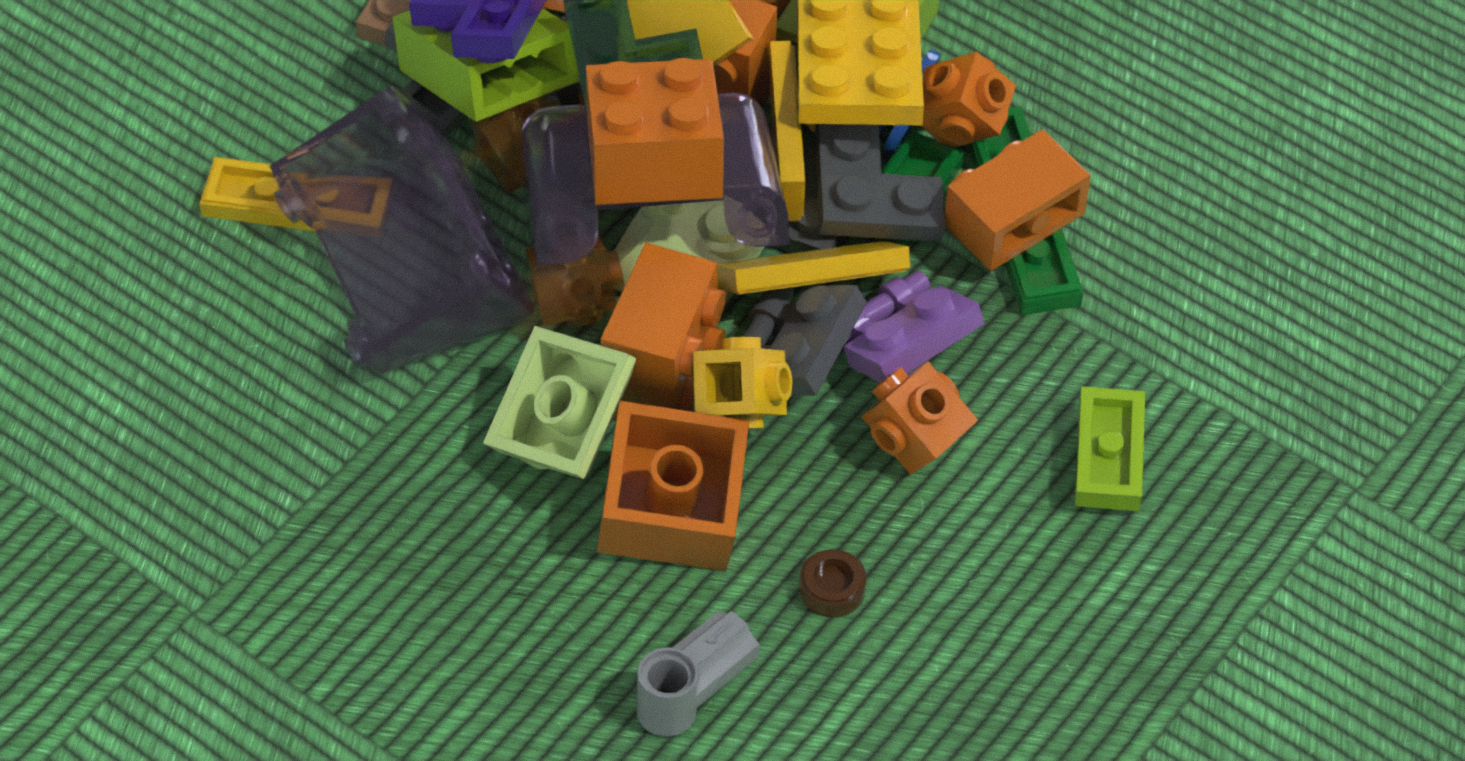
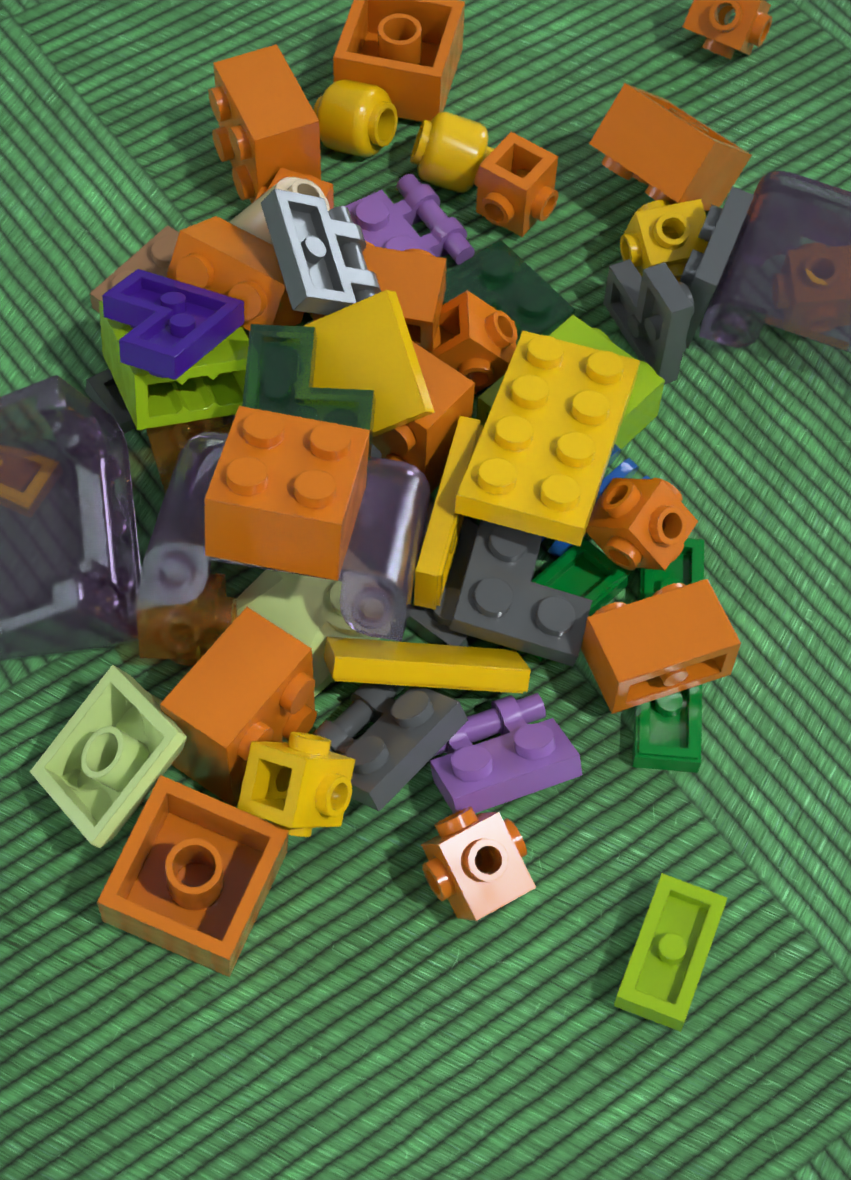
camera: 15 degrees right, 5 degrees up
(692, 671) = (148, 1088): light grey piece -> none
(832, 583) = (330, 1025): reddish brown tile -> none

